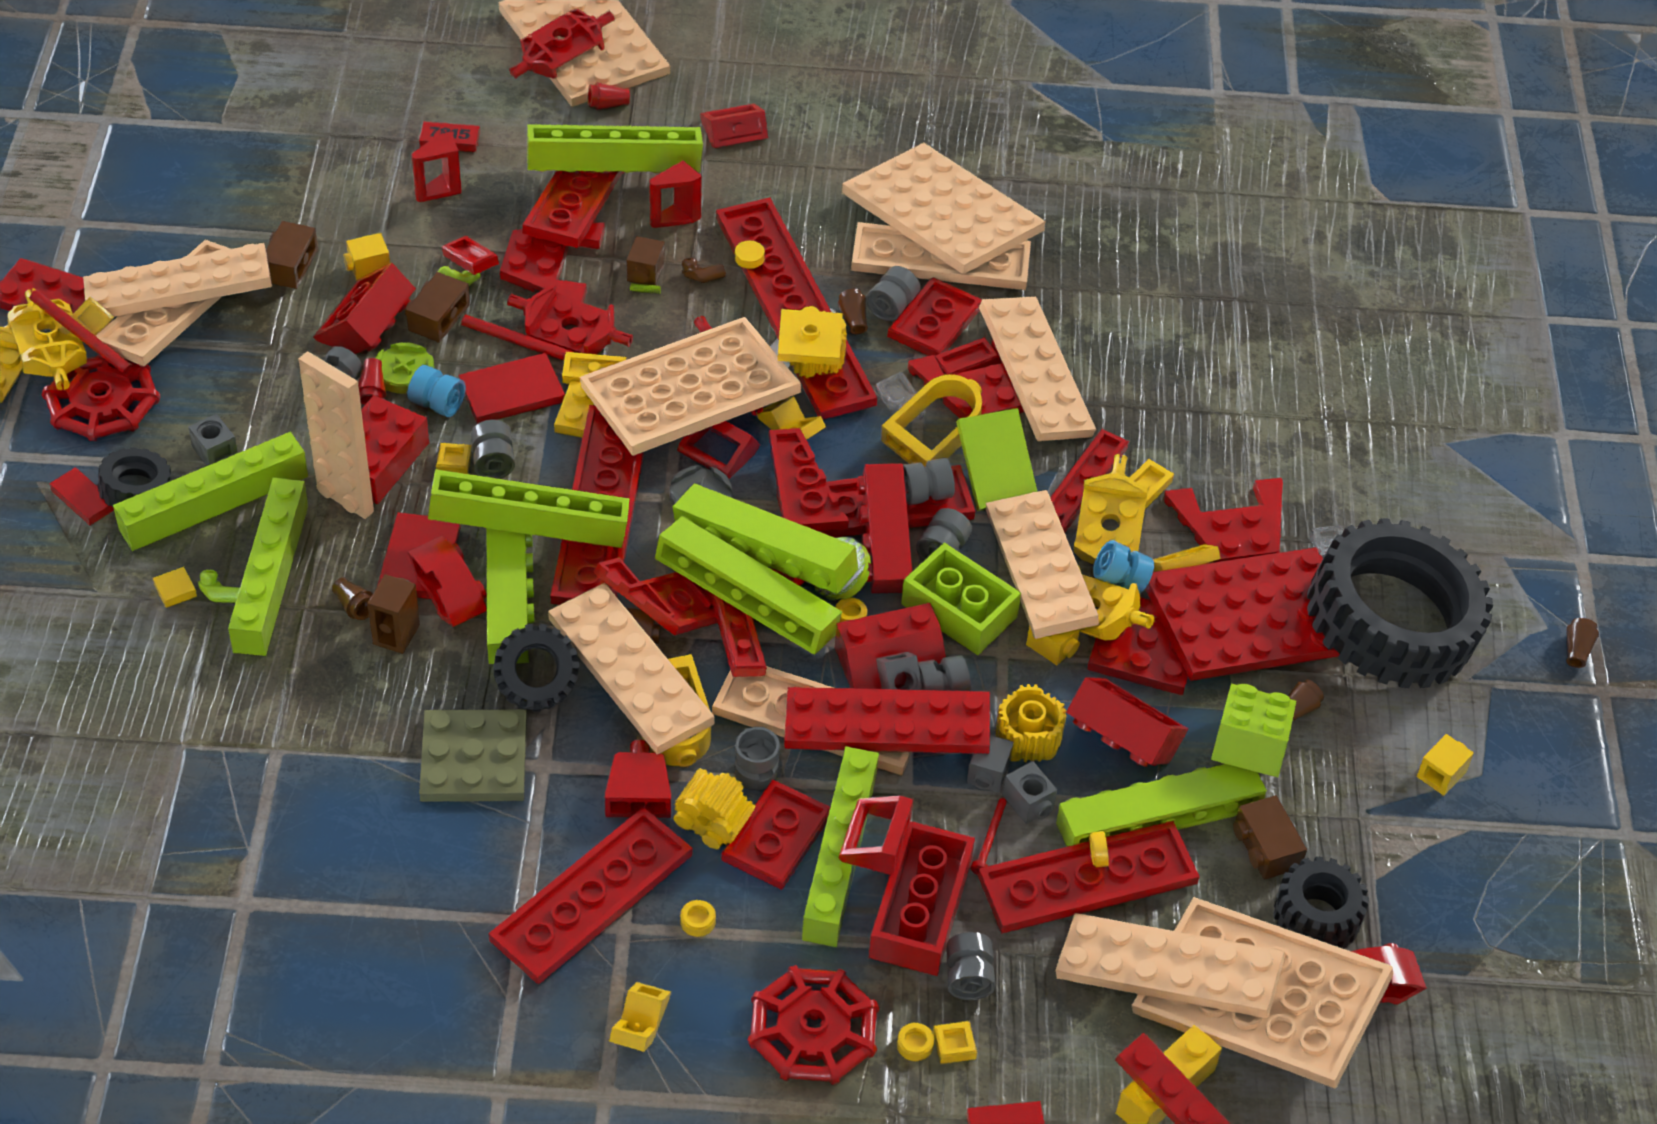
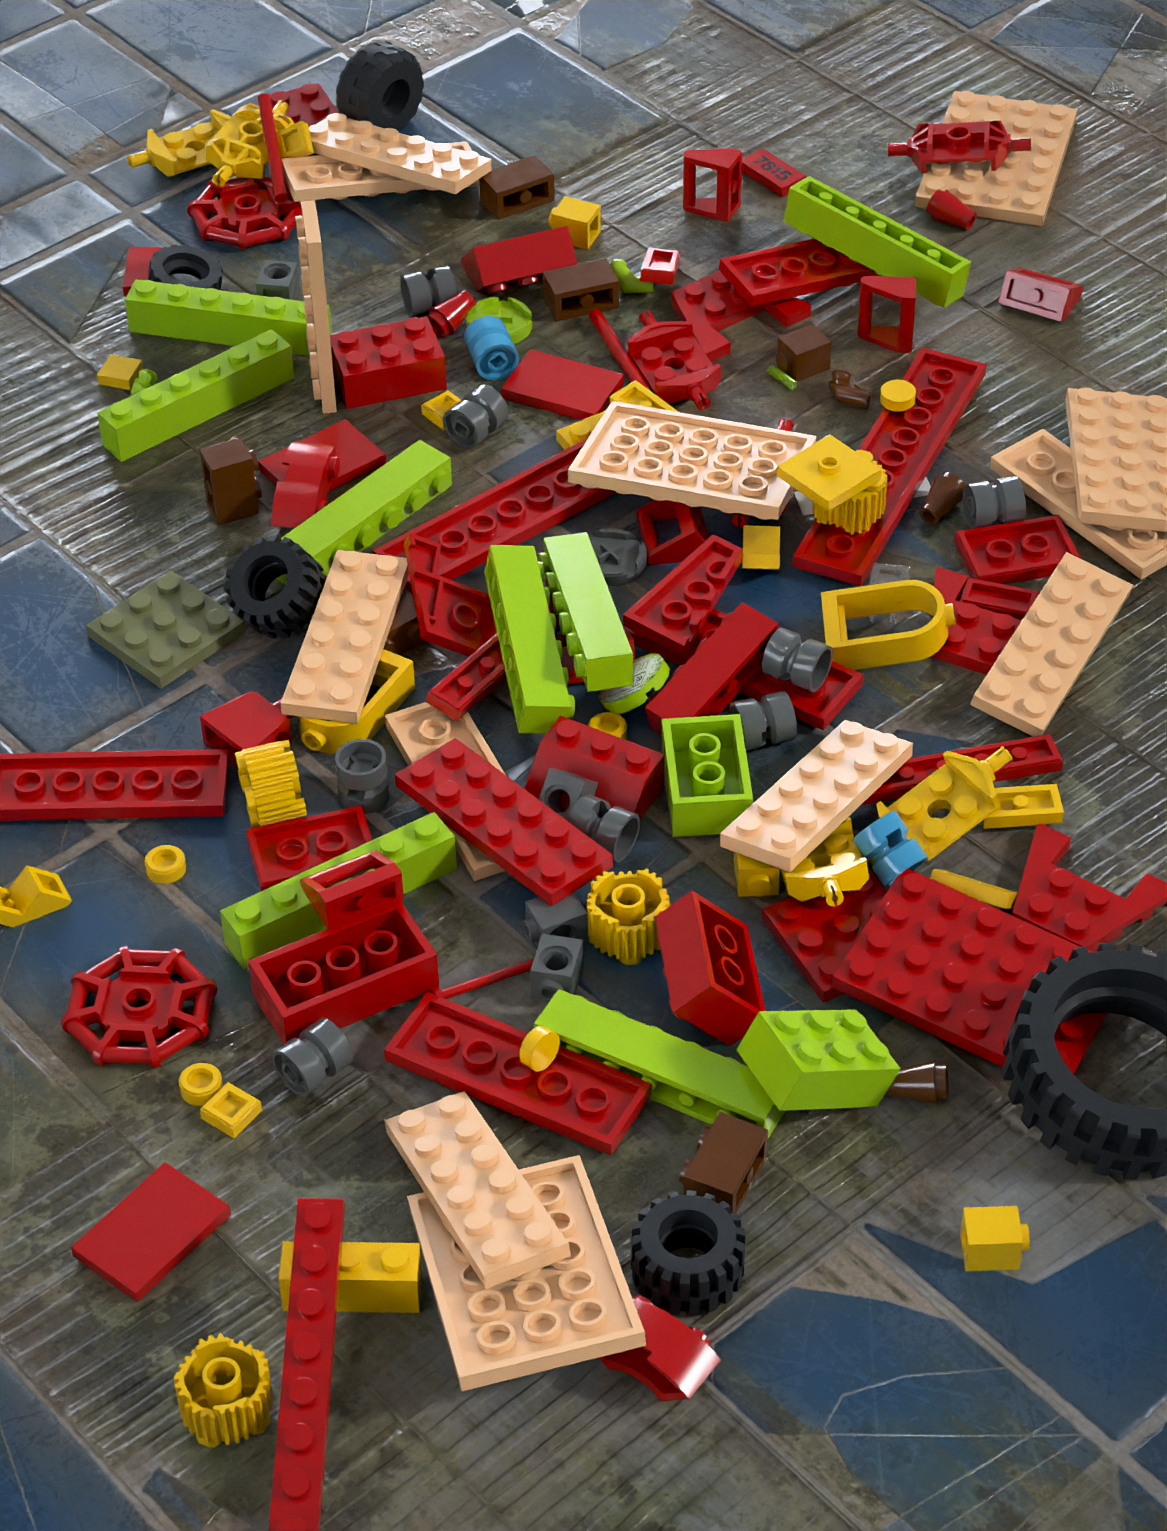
camera: 50 degrees right, 5 degrees down
(100, 232) = (381, 86): none -> black tyre
(528, 508) = (418, 463): lime brick -> none
(996, 456) = (899, 683): lime tile -> none

